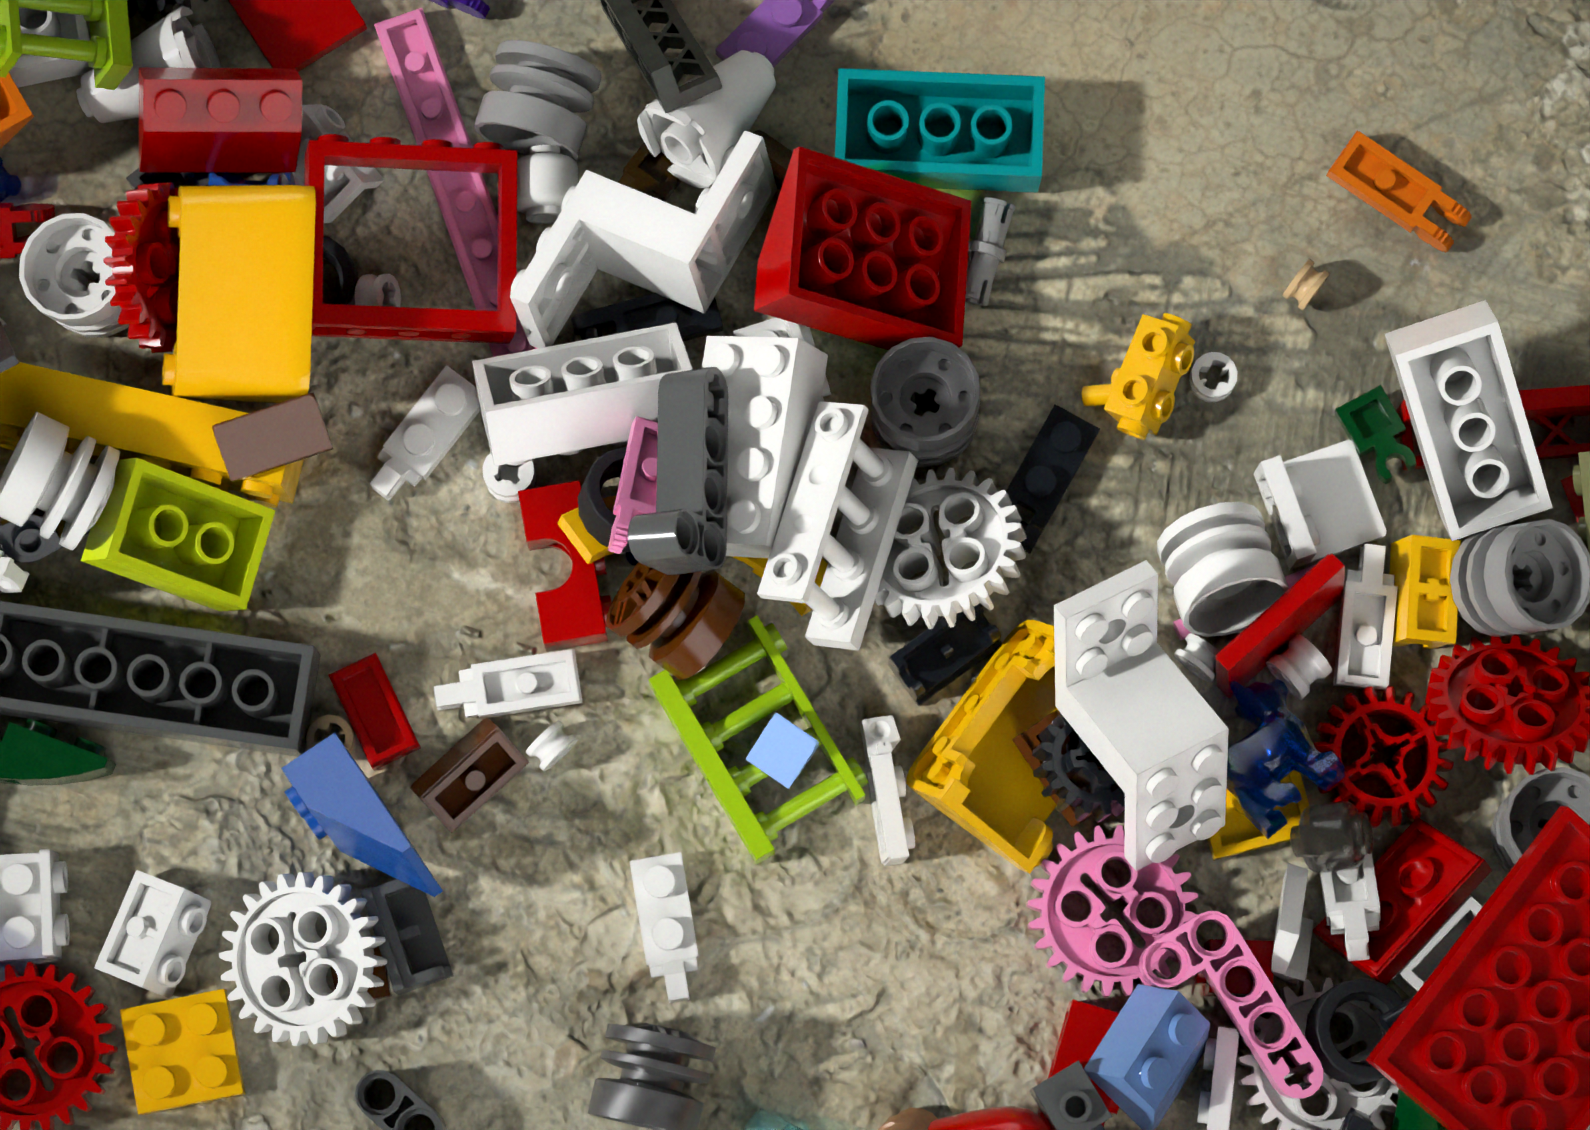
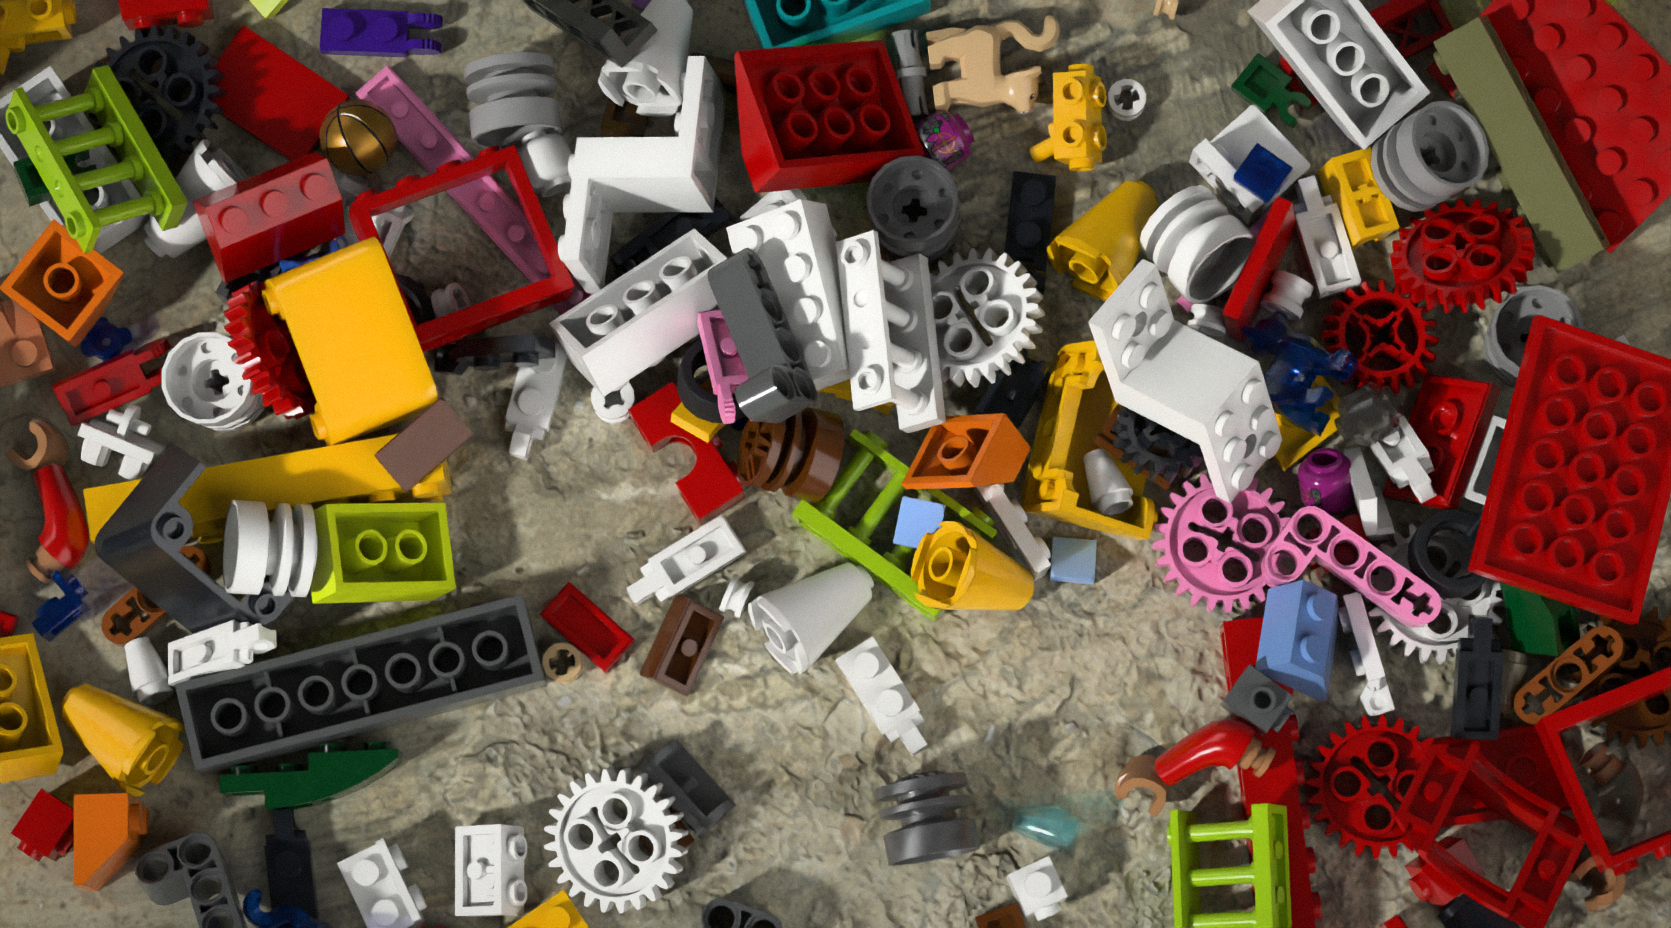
camera: 20 degrees left, 0 degrees up
(343, 804) = (610, 712): slope -> none
(353, 73) = (358, 137): none -> pearl gold piece
(396, 366) = (488, 353): none -> black hinge
(623, 799) = (810, 613): none -> white cone
(812, 827) = (967, 572): none -> yellow cone
(868, 696) = (968, 453): none -> orange slope
(938, 860) = (1073, 560): none -> light blue slope
(993, 338) = (945, 138): none -> head
(1009, 793) = (1106, 484): none -> white cone
(1067, 272) = (980, 64): none -> tan animal
(1122, 520) = (1105, 240): none -> yellow cone
(1253, 891) = (1326, 481): none -> magenta head
(1327, 520) = (1262, 173): none -> clear blue bracket

